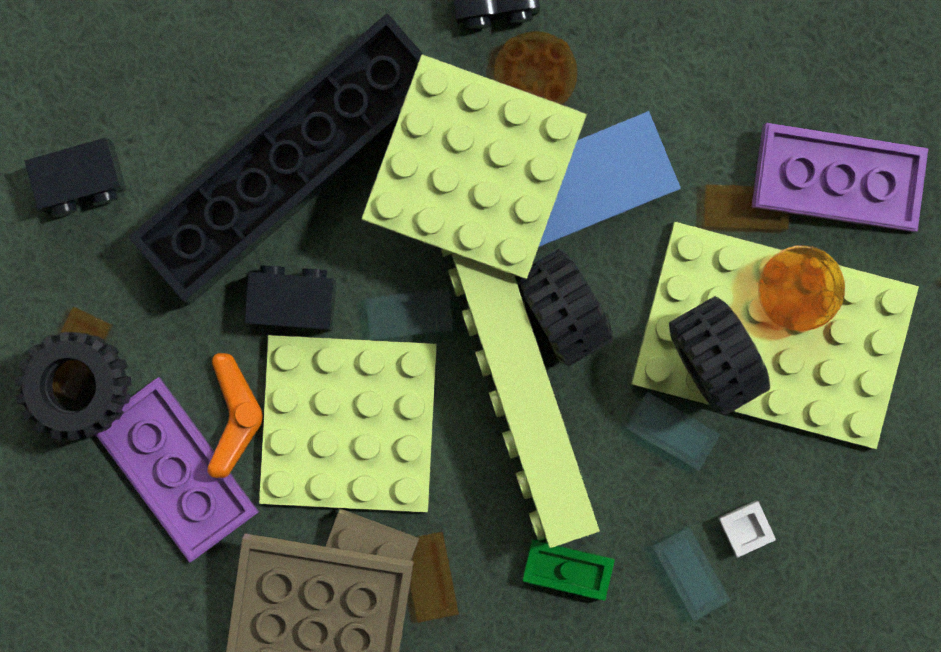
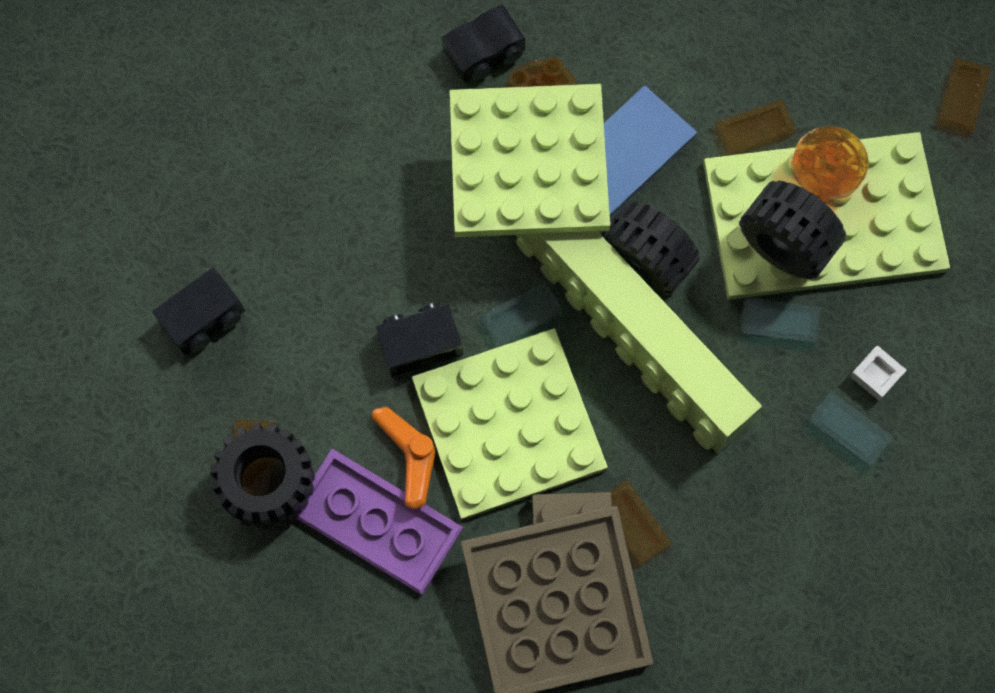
camera: 25 degrees left, 15 degrees down
(281, 162) = (366, 234): black brick -> none
(568, 569) = (747, 466): green plate -> none
(839, 177) = (817, 76): medium lavender tile -> none

